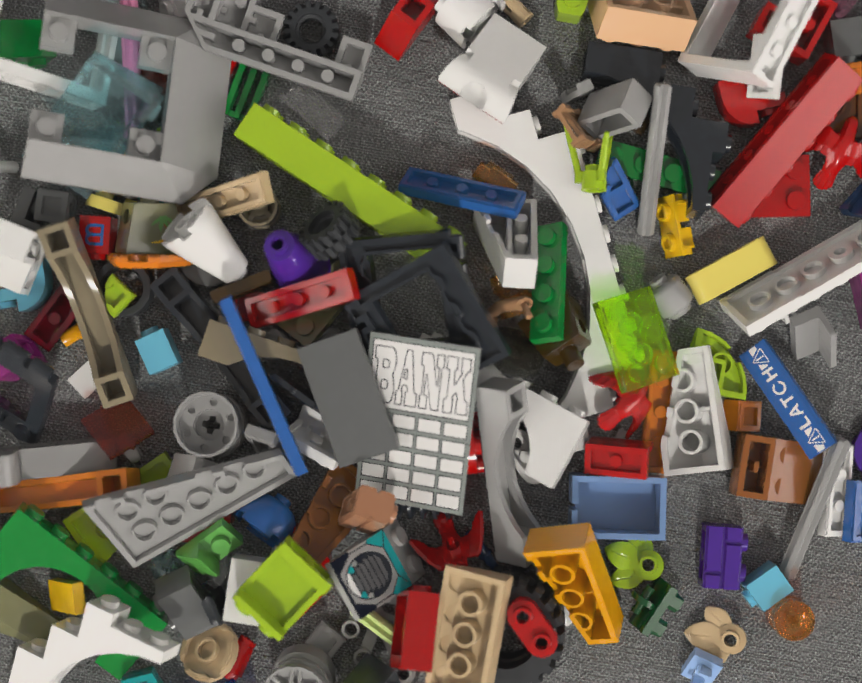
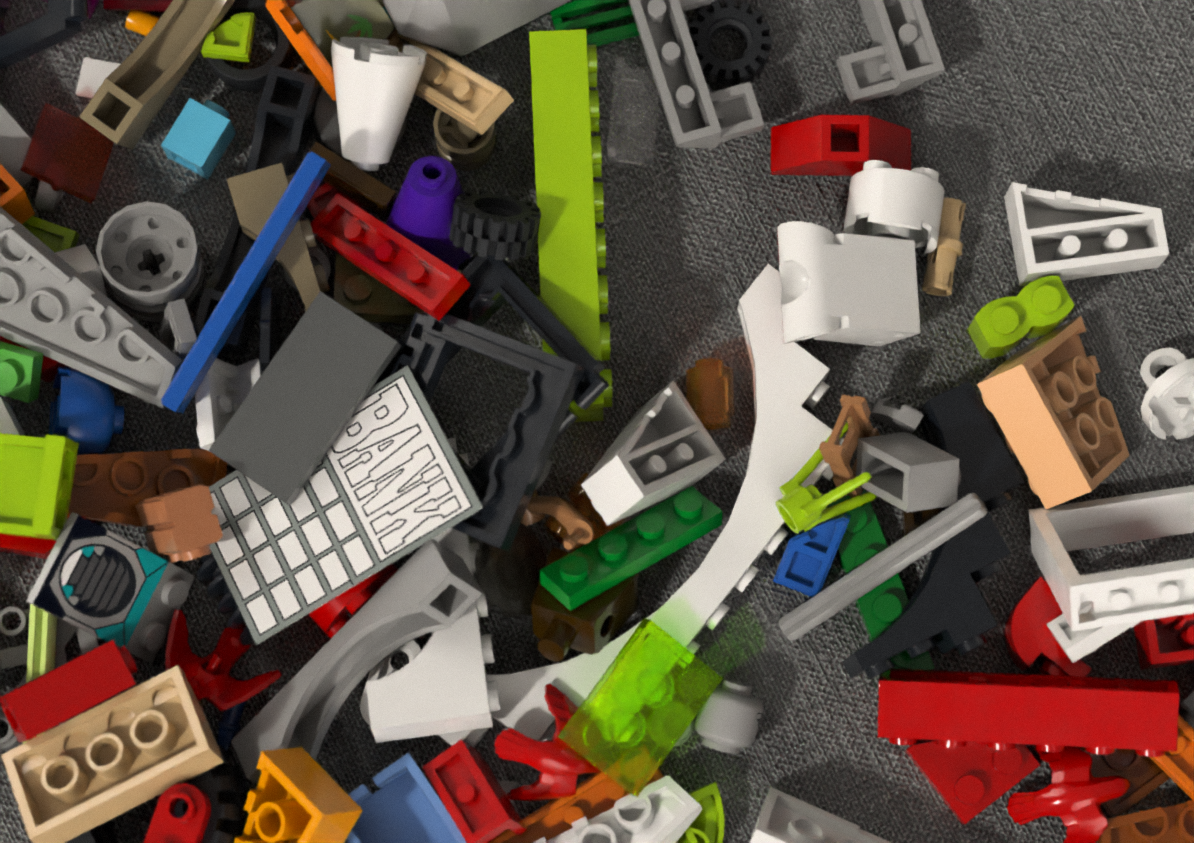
camera: 50 degrees right, 10 degrees down
(462, 192) = (665, 361): blue tile -> none
(674, 239) = (806, 671): yellow hinge -> none
(731, 270) = (819, 772): light yellow beam -> none

